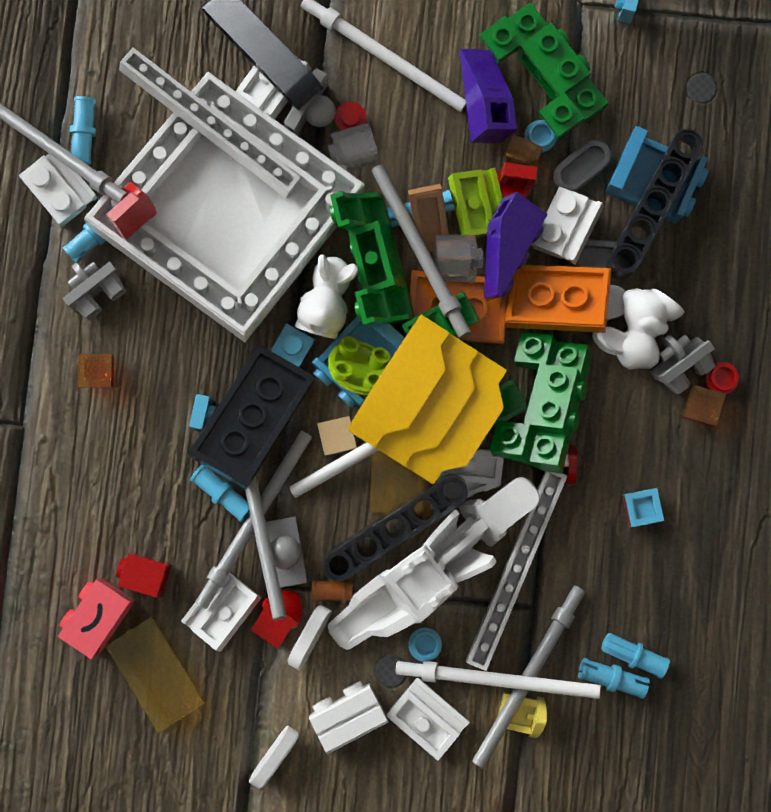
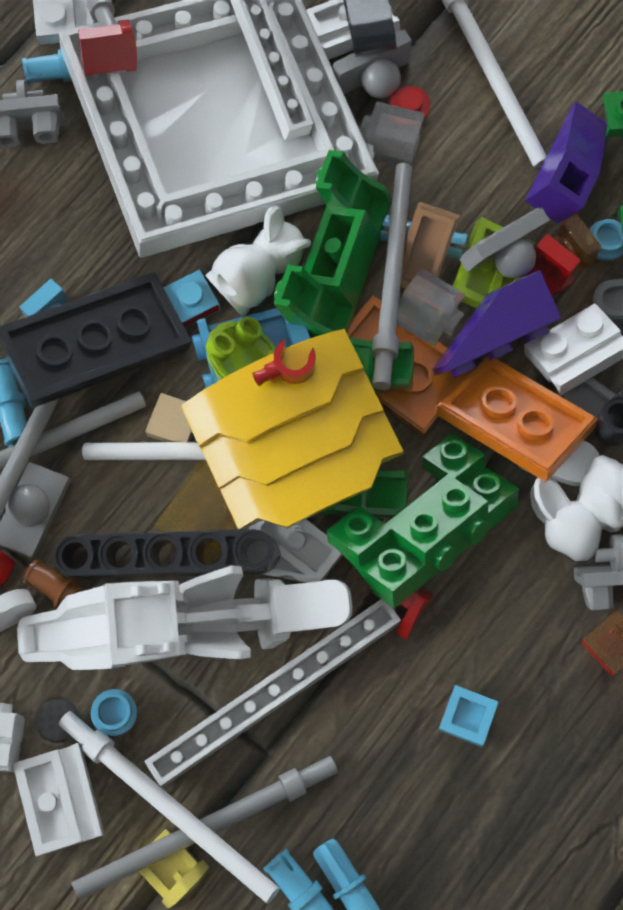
camera: 35 degrees right, 10 degrees down
(400, 372) = (276, 369): none -> red piece
(483, 185) = (509, 247): none -> light grey tile

